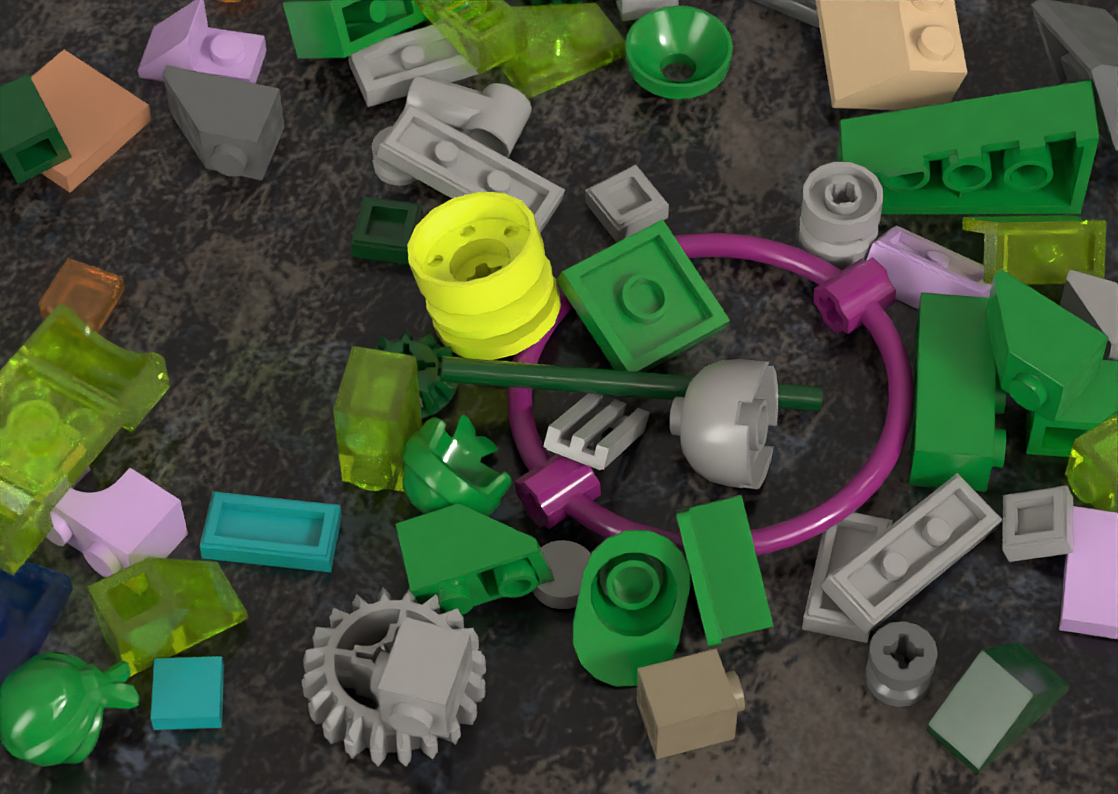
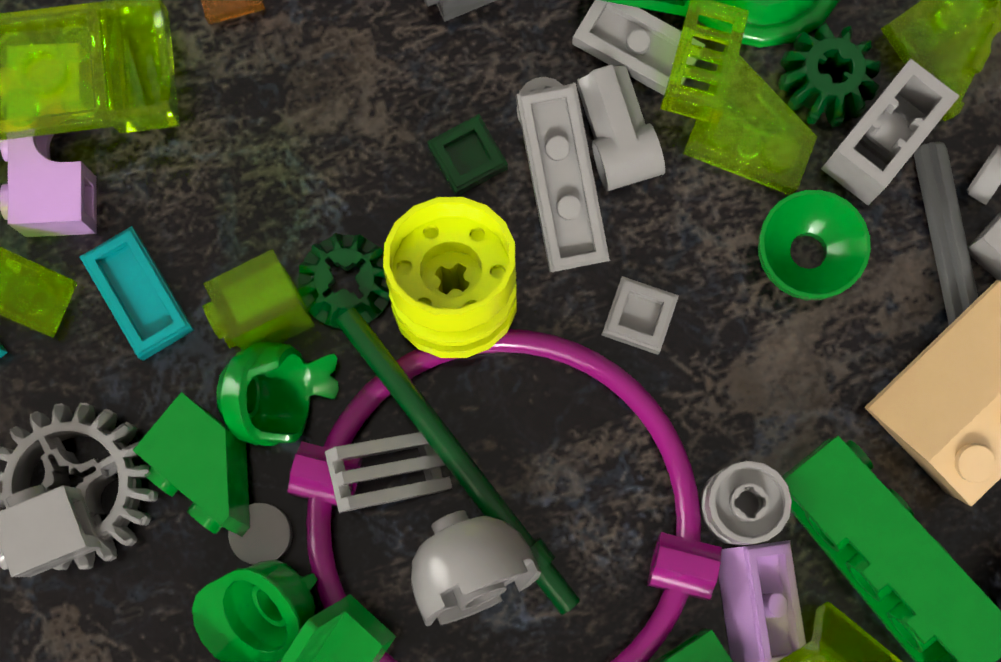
camera: 50 degrees right, 25 degrees up
(643, 300) = (543, 408): green tile -> none

